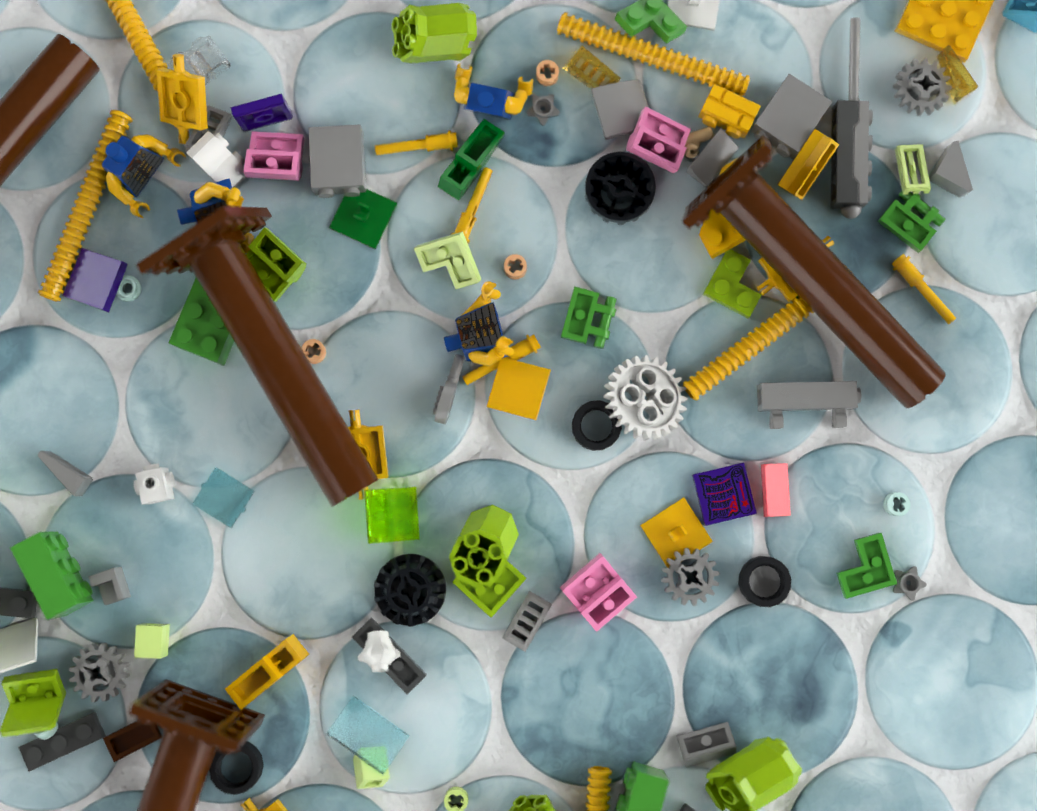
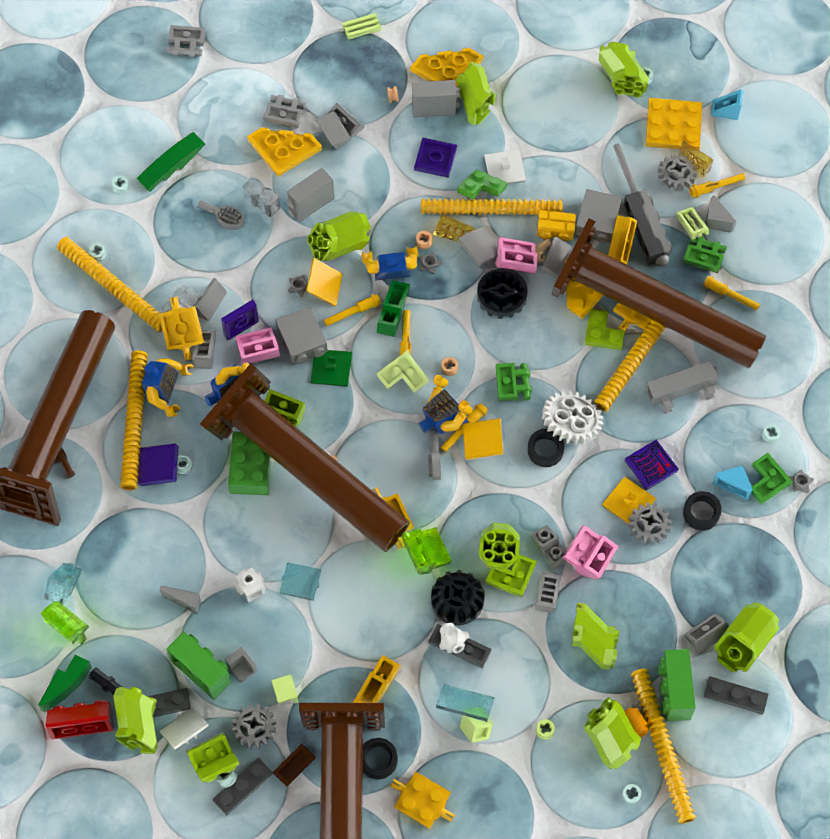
camera: 20 degrees left, 20 degrees down
(216, 159) = (217, 356): white brick -> none
(238, 67) = (210, 300): none -> light grey slope
(366, 78) = (300, 280): none -> light grey plate
(392, 93) = (324, 282): none -> yellow piece
(552, 560) = (549, 546): none -> light grey slope
(560, 711) = (595, 637): none -> lime brick
(775, 490) = (685, 450): coral slope -> none
(824, 557) = (734, 481): none -> medium azure slope
(944, 122) = (707, 187): none -> yellow pin

